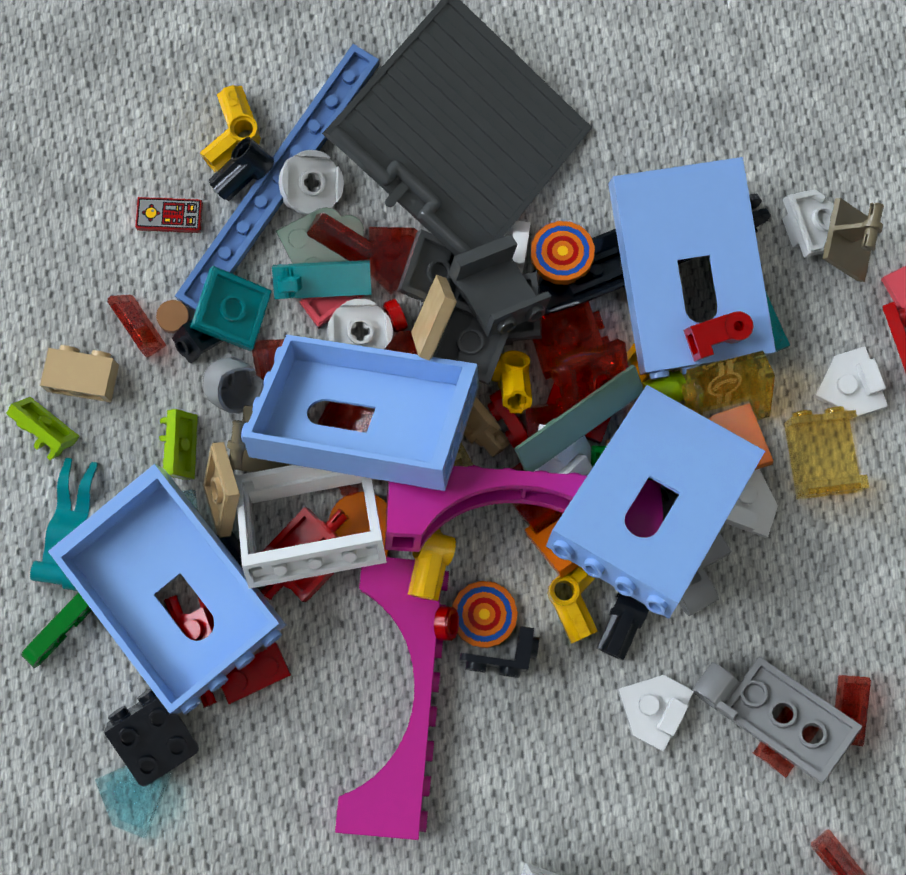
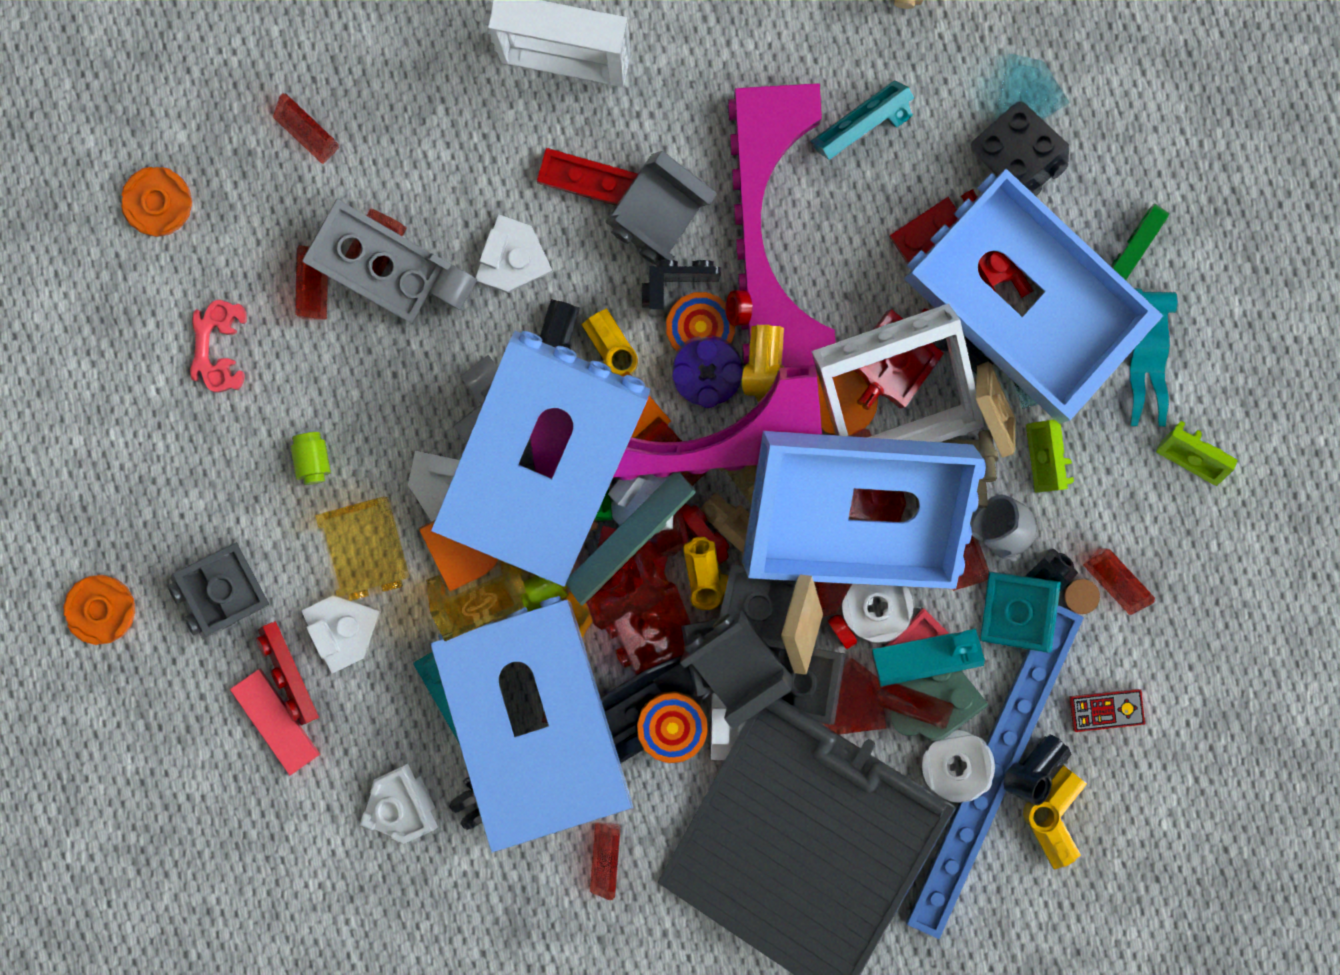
camera: 175 degrees right, 10 degrees up
(79, 373) = (1168, 515): tan brick -> none
(272, 804) = (888, 104): none -> teal hinge
(483, 587) = (707, 391): none -> dark purple plate
(509, 732) = (659, 207): none -> dark grey panel
(569, 772) = (584, 177): none -> red plate
(636, 146) = (605, 860): none -> clear red slope
(726, 328) = (496, 652): red leg -> none
(852, 238) = (360, 789): dark tan plate -> none
(867, 543) = (310, 458): none -> lime brick

